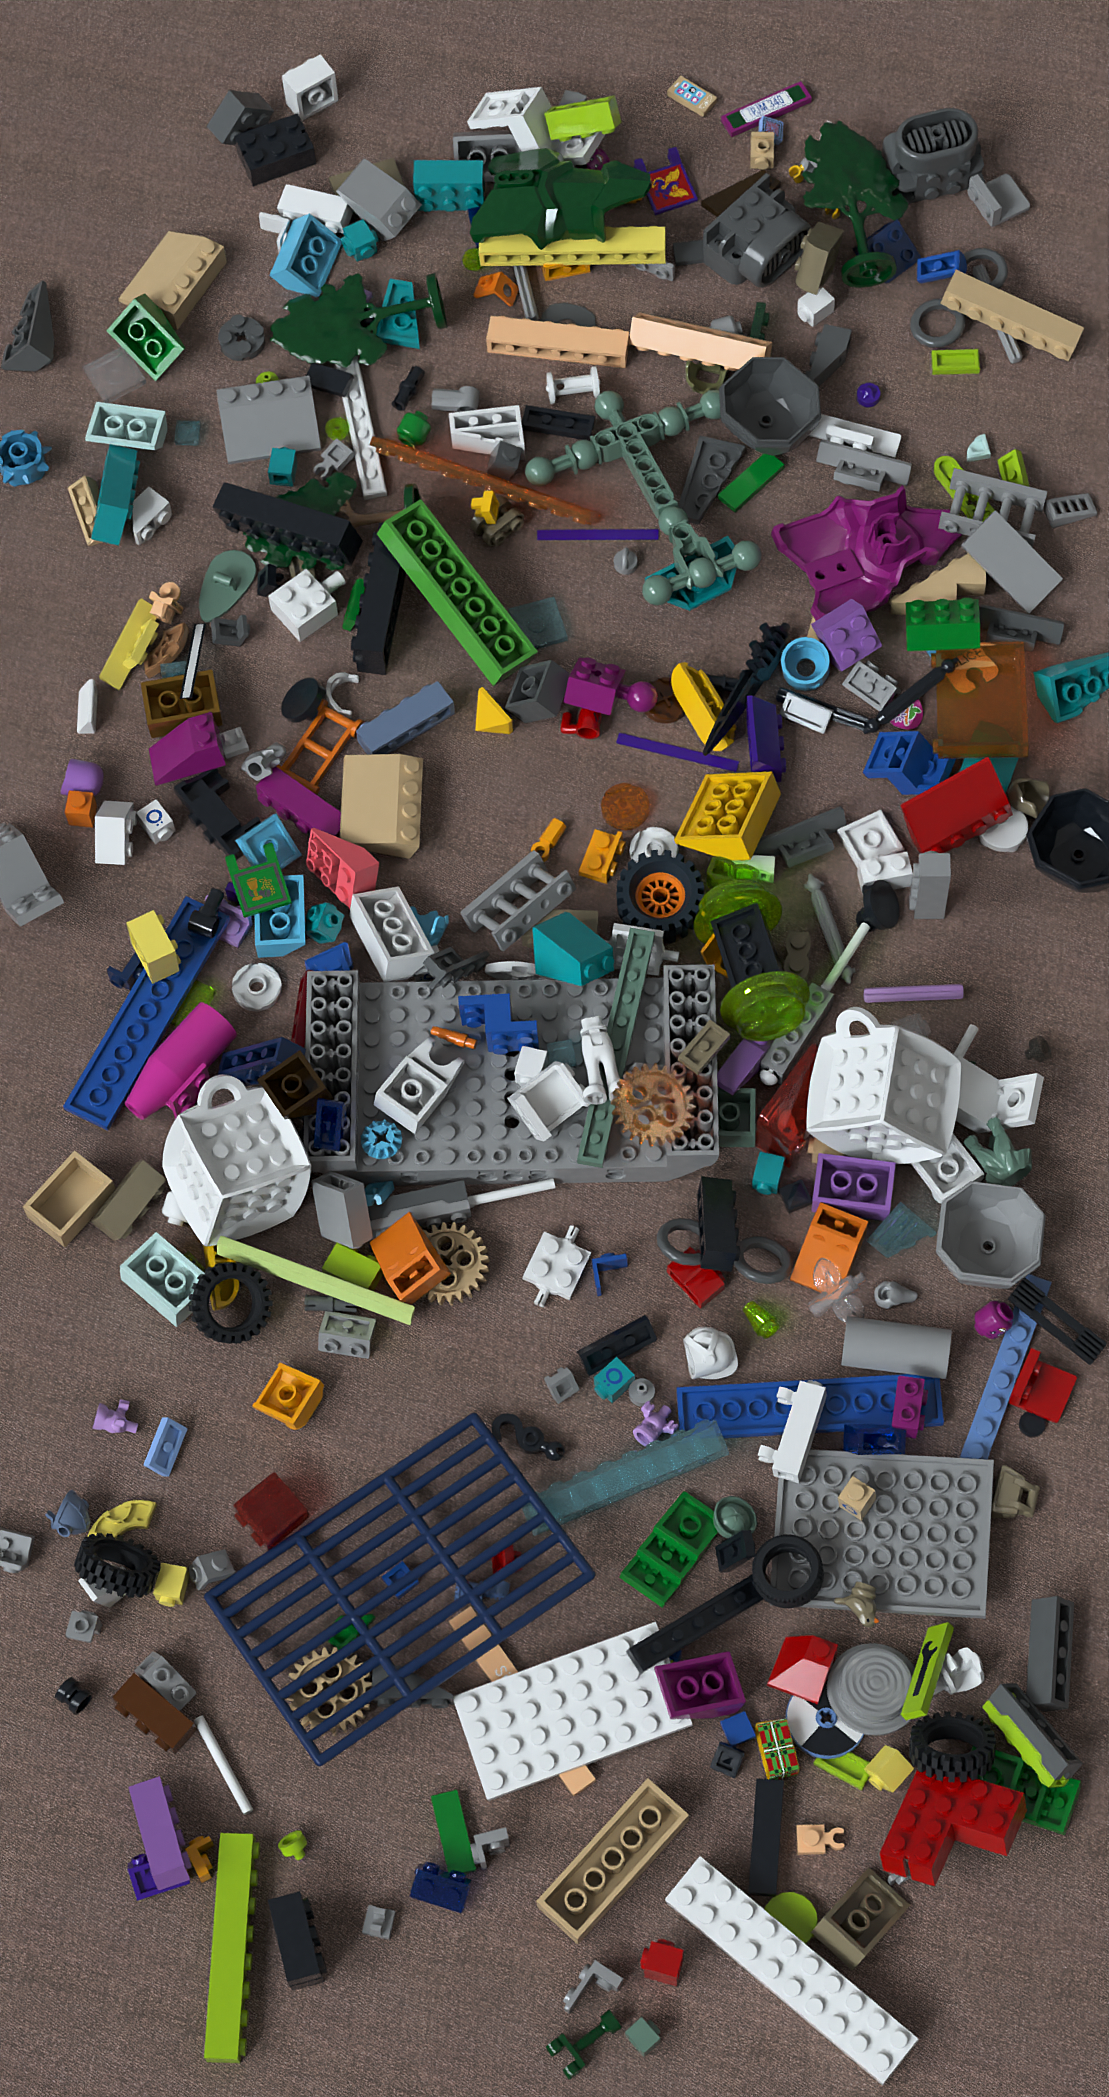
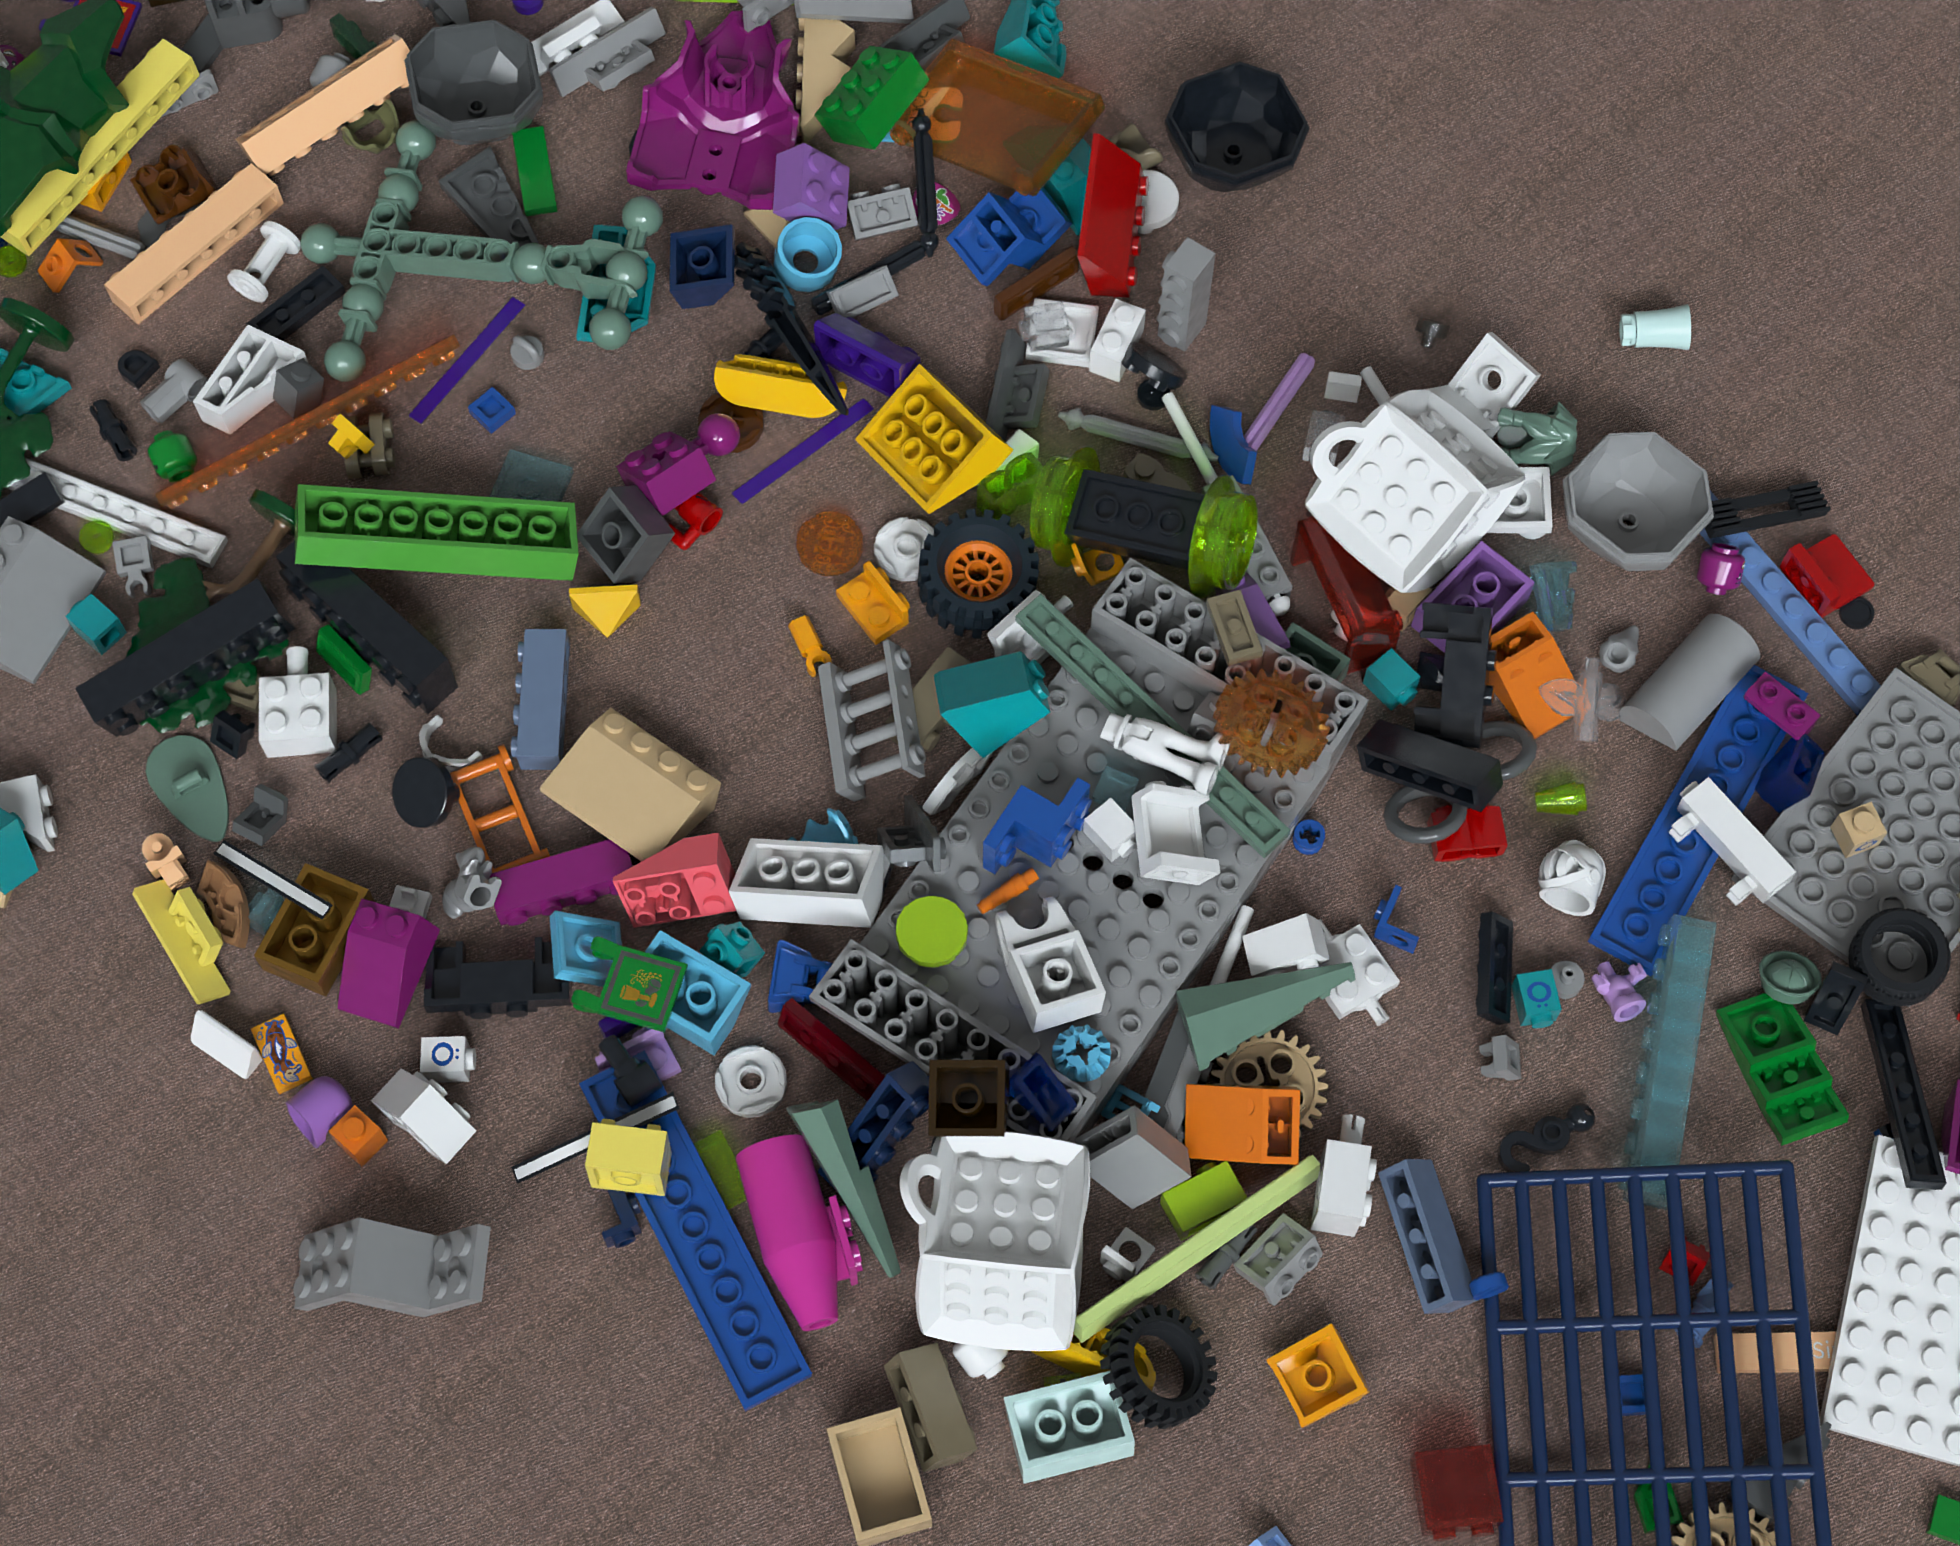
camera: 60 degrees left, 0 degrees up
(102, 739) = (281, 1053): none -> tile
(171, 931) = (579, 1144): none -> sticker
(234, 1035) = (830, 1142): none -> sand green wedge
(282, 1248) = (1117, 1265): none -> white bracket
(301, 647) = (348, 752): none -> black pin
(399, 1012) = (931, 931): none -> lime tile
(404, 1454) = (1488, 1285): none -> blue tile
(414, 1336) = (1343, 1182): none -> white brick
(415, 1405) = (1427, 1235): none -> sand blue brick
(458, 371) = (137, 367): none -> black tile
(469, 1207) = (1234, 1011): none -> sand green wedge
(539, 1218) = (1286, 947): none -> white brick
(573, 570) = (491, 410): none -> blue tile
(589, 303) = (173, 183): none -> reddish brown slope
(621, 1191) = (1303, 845): none -> blue bush
(748, 610) = (702, 265): none -> dark blue slope
(790, 1205) = (1464, 674): none -> black bracket
(859, 826) = (1045, 326): none -> clear brick
(862, 982) = (1230, 445): none -> blue tile
(879, 800) = (1036, 283): none -> reddish brown tile
(955, 1022) = (1343, 386): none -> white tile

